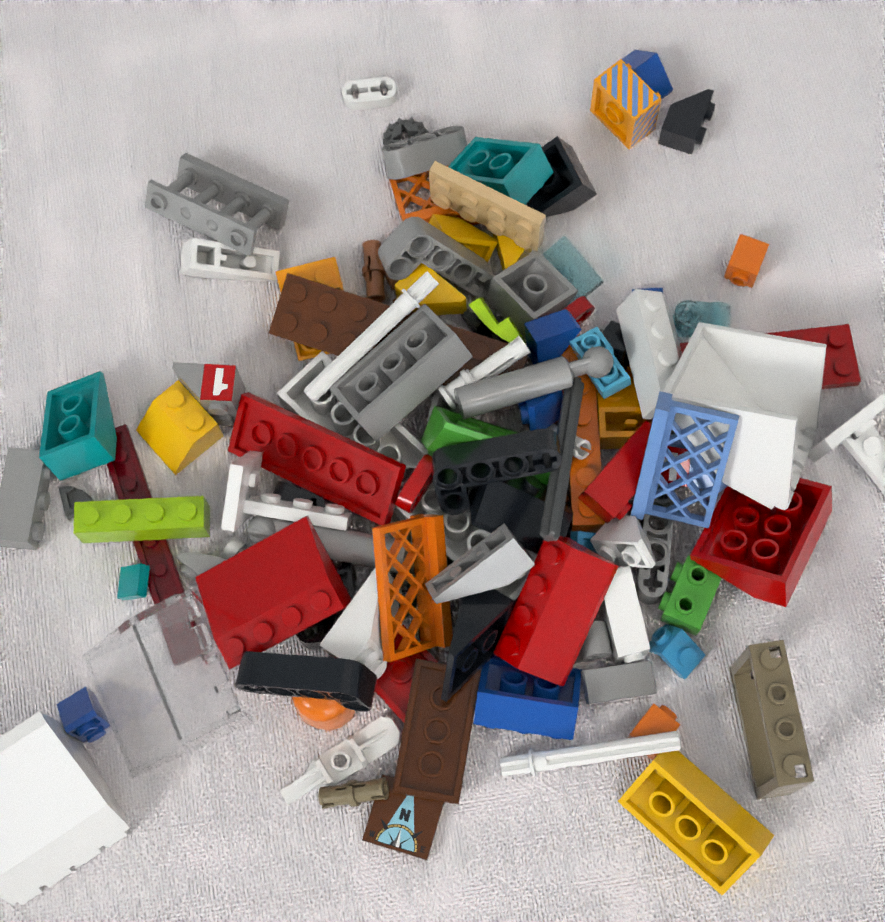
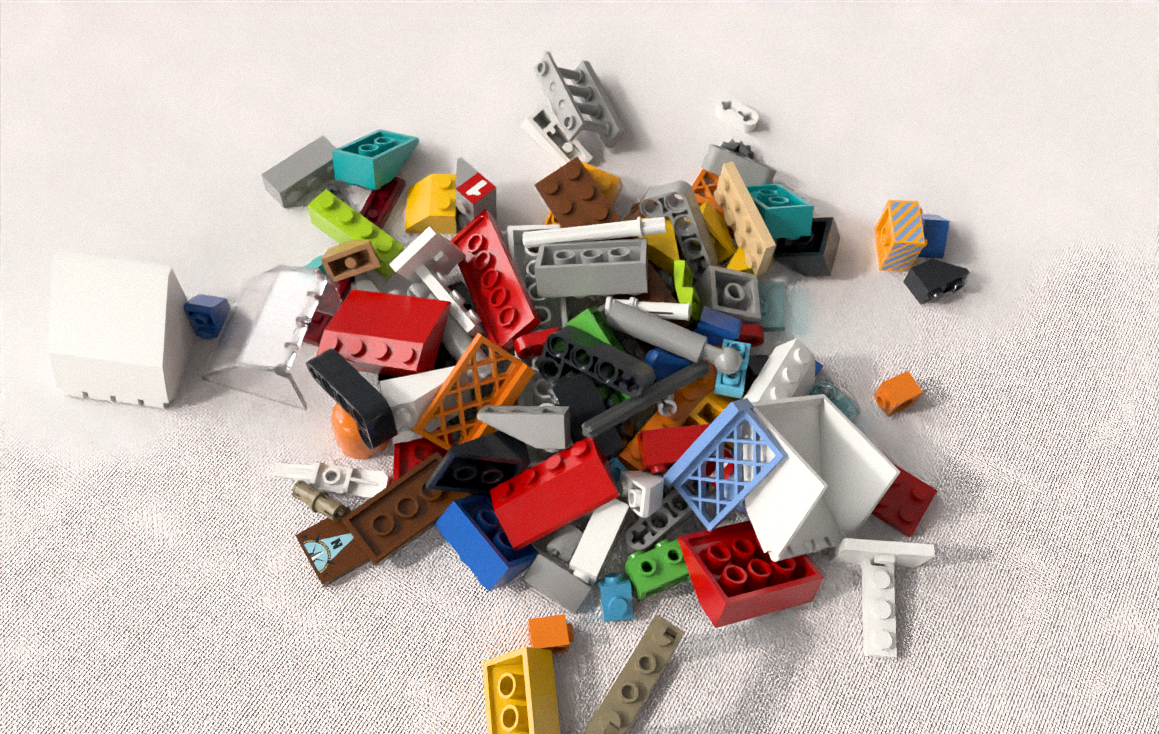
camera: 30 degrees right, 10 degrees down
(166, 551) = (350, 259): none -> medium nougat slope
(590, 753) = (459, 589): white axle -> none

